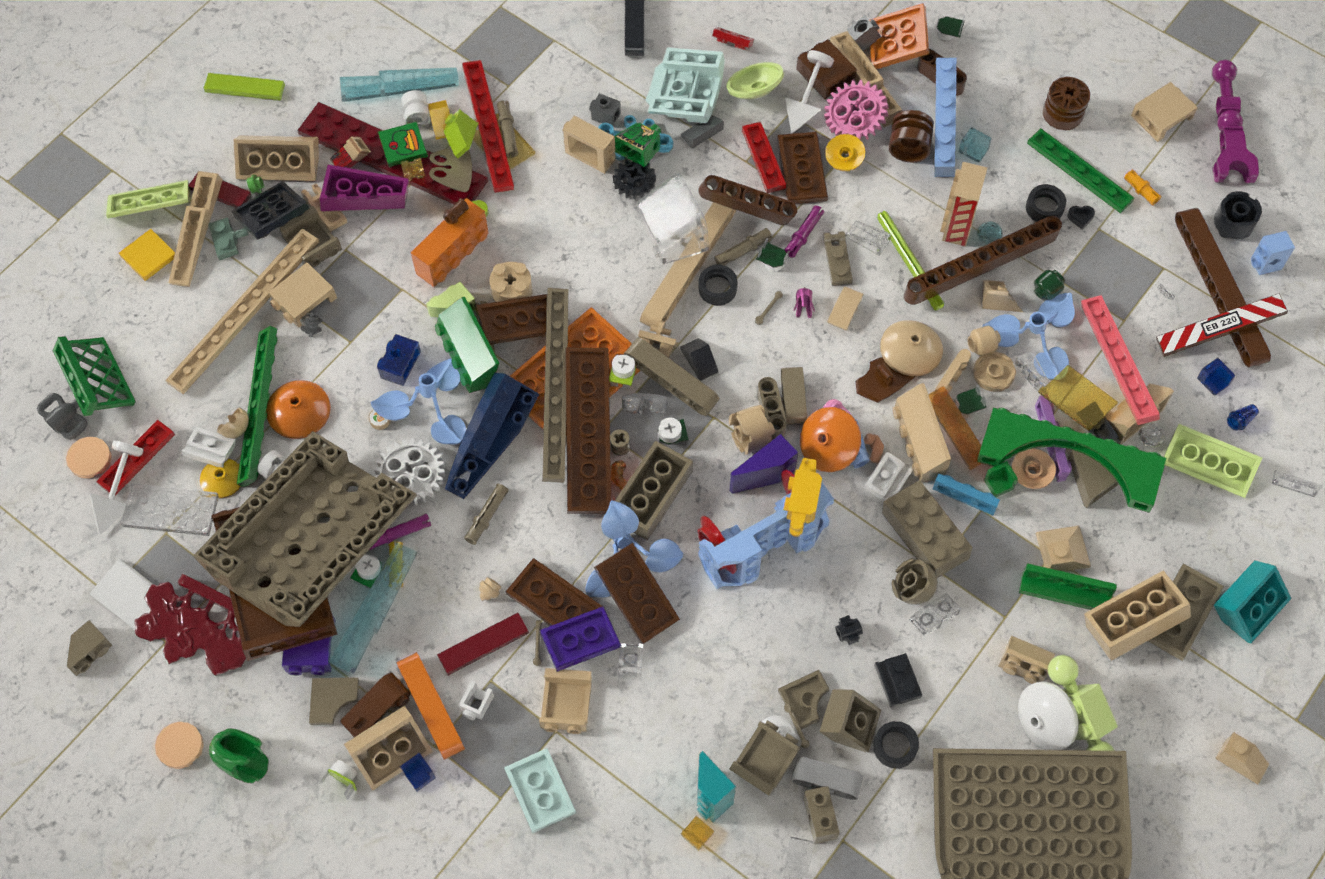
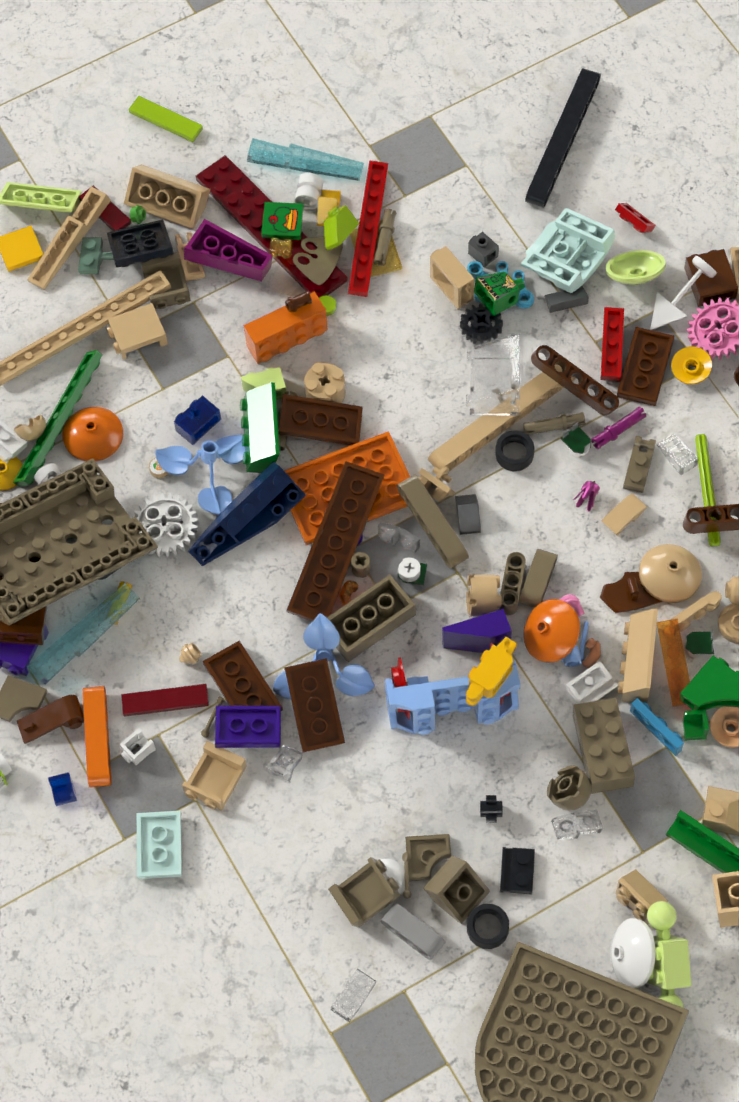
camera: 25 degrees right, 0 degrees up
(311, 324) = (134, 361): dark grey wheel -> none
(350, 153) = (231, 214): leg -> none
(367, 571) = (91, 597): white piece -> none
(387, 746) = (44, 757): tan slope -> none
(402, 530) = (131, 574): magenta pin -> none
(482, 521) = (209, 591): dark tan pin -> none
(555, 386) = (317, 504): dark tan plate -> none
(622, 371) = (388, 500): white piece -> none
(697, 833) = (278, 934): clear yellow plate -> none
(714, 790) = (301, 900): teal slope -> none
(759, 319) = (540, 496): dark tan hinge -> none
(821, 815) = (392, 960): dark tan brick -> none

